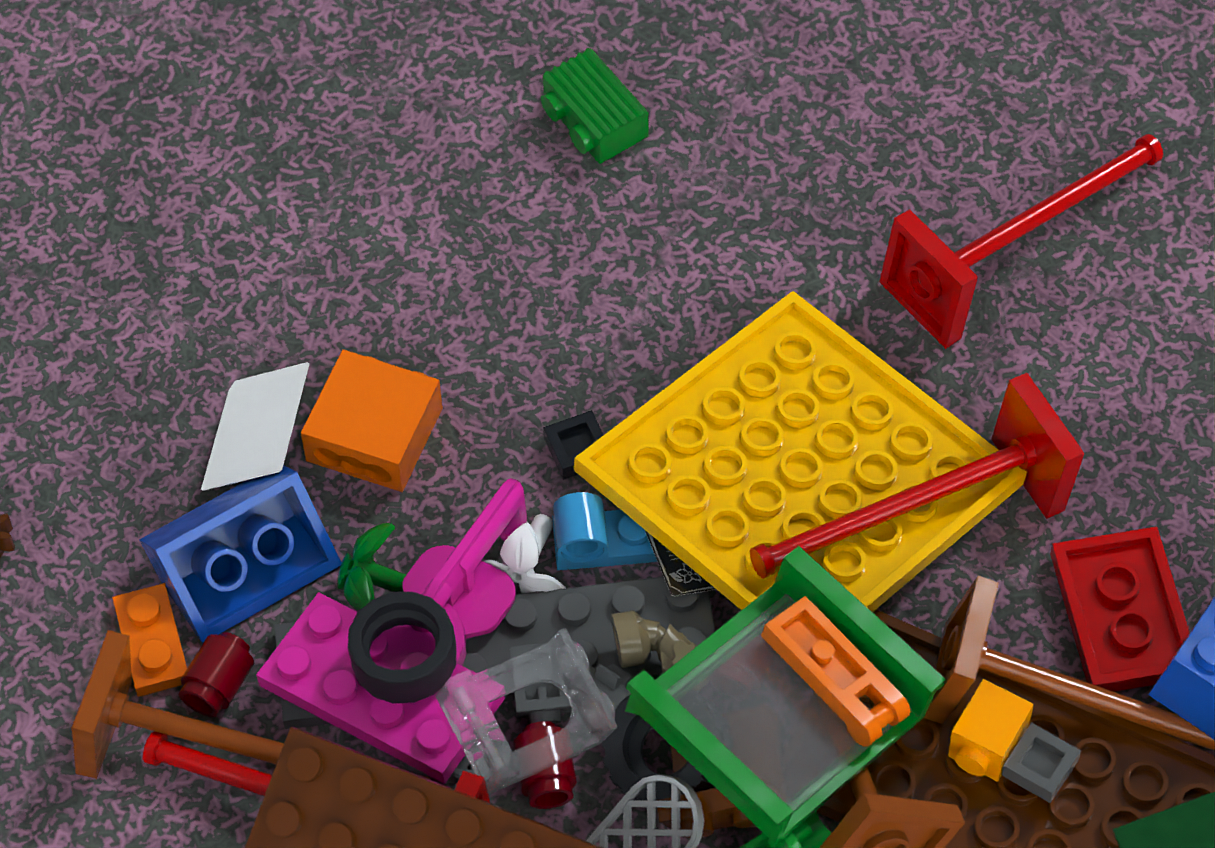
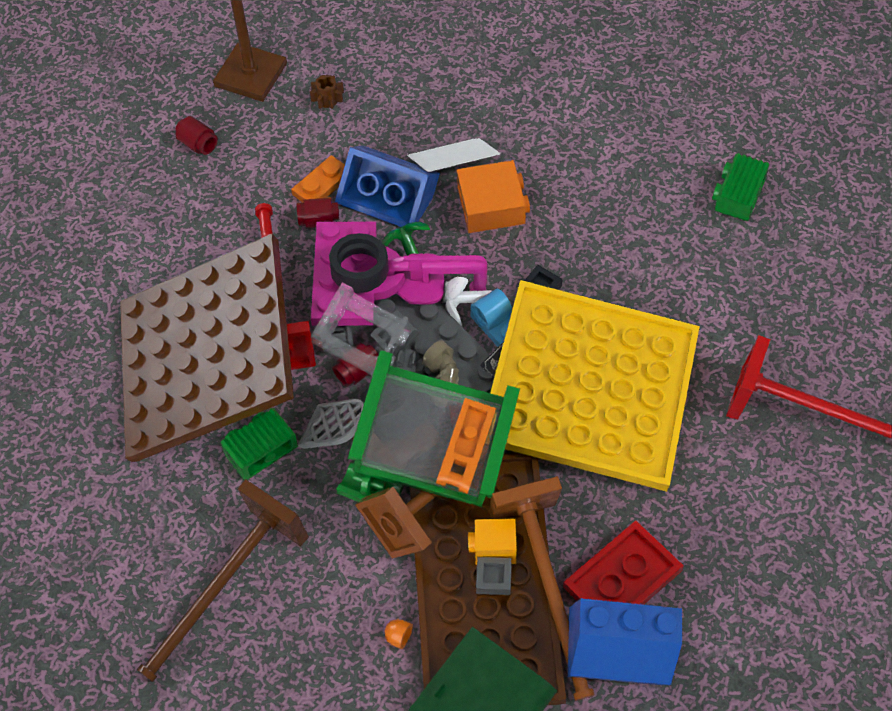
camera: 60 degrees right, 0 degrees up
(108, 706) = (268, 178): dark orange tile -> none
(1027, 437) = (677, 476): red tile -> none

